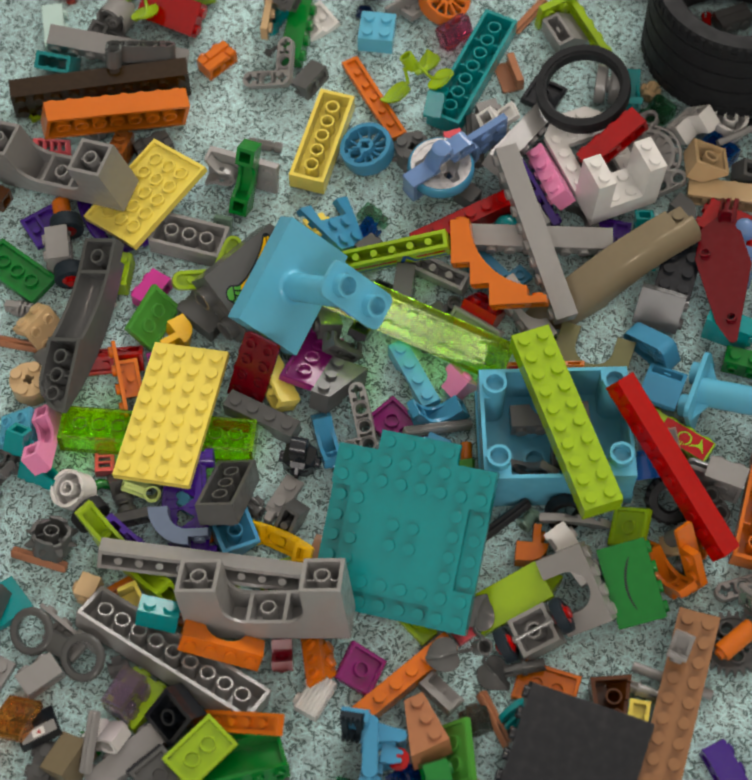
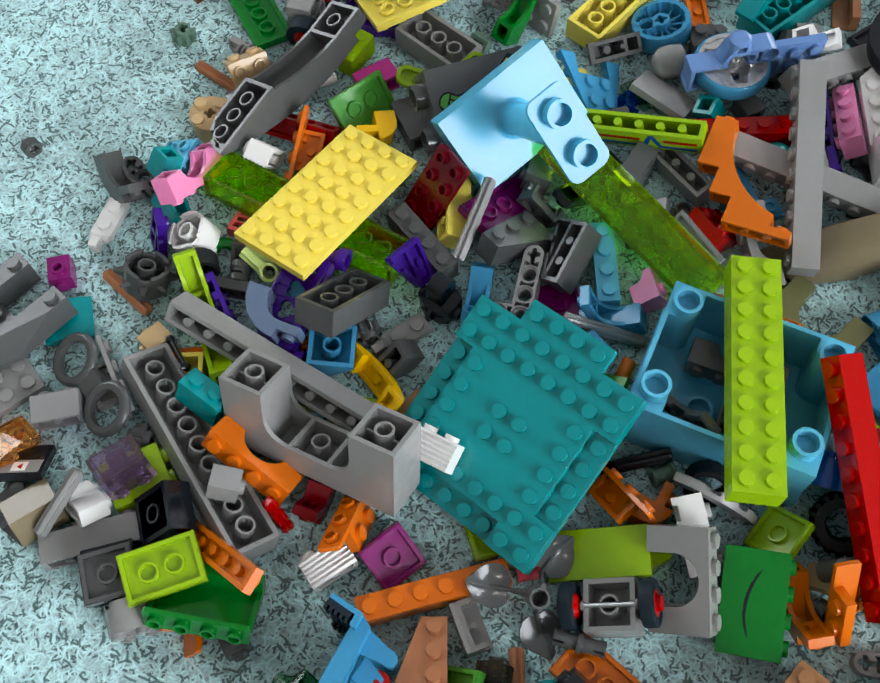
camera: 25 degrees right, 0 degrees up
(42, 500) = (158, 231): none -> dark purple wing
(94, 396) = (263, 154): none -> white brick
(127, 596) = (185, 366): none -> black hinge
(212, 670) = (225, 483): none -> light grey brick
(260, 676) = (277, 514): none -> red axle
(265, 437) = (411, 263): none -> dark purple wing
(297, 381) = (474, 218): none -> light grey axle
(338, 184) = (614, 48): none -> dark grey slope
(363, 574) = (439, 450): none -> white brick
(384, 378) = (569, 254): none -> dark grey wedge
(388, 179) = (668, 61): none -> light grey piece
(396, 211) = (662, 95): none -> light grey tile
(437, 209) = (708, 107): none -> teal brick
(506, 552) = (618, 499): none -> orange bracket

